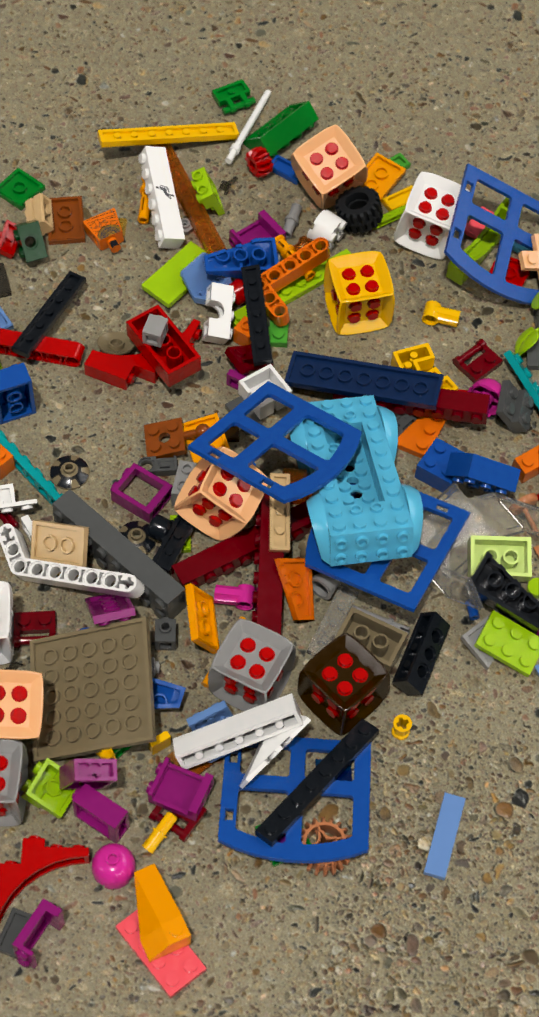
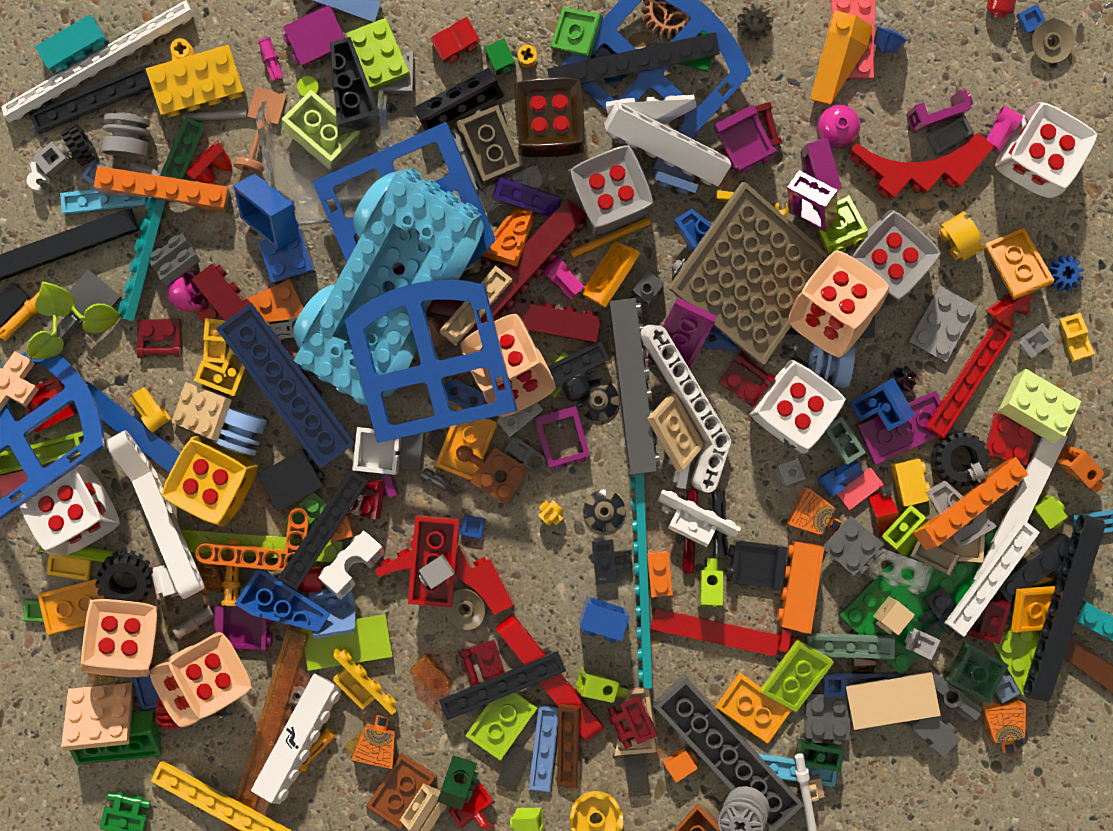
camera: 145 degrees left, 30 degrees up
(28, 296) = (501, 723): none -> lime plate
(41, 438) = (604, 561): none -> black hinge
(73, 329) = (488, 658): none -> dark red plate
(105, 294) = (429, 672): none -> clear orange piece
(107, 439) = (551, 513): none -> yellow gear
(128, 963) = (888, 40): none -> blue piece
(147, 255) = (358, 685): none -> yellow bracket
(155, 398) = (473, 526): none -> blue tile
(159, 832) = (785, 121): yellow axle -> none
(203, 408) = (440, 482): none -> dark grey axle
(206, 191) = (248, 713): lime plate -> none
(235, 148) = (176, 748): white bar -> none
(248, 899) = (747, 19): none -> clear smoke gear
(255, 178) = (200, 680): none -> light nougat piece
(297, 123) = (98, 716): none -> light nougat plate
(306, 335) = (292, 479): none -> black panel
(313, 625) = (525, 196): none -> dark purple plate
(350, 241) = (158, 512): none -> white beam
(369, 338) = (239, 432): none -> light blue wheel
(381, 773) = (576, 32): none -> bright green tile
(404, 330) = (201, 411): none -> tan plate
(421, 710) = (500, 57): none -> green brick
(446, 297) = (122, 420): none -> blue tile
(464, 697) = (455, 41): none -> red brick

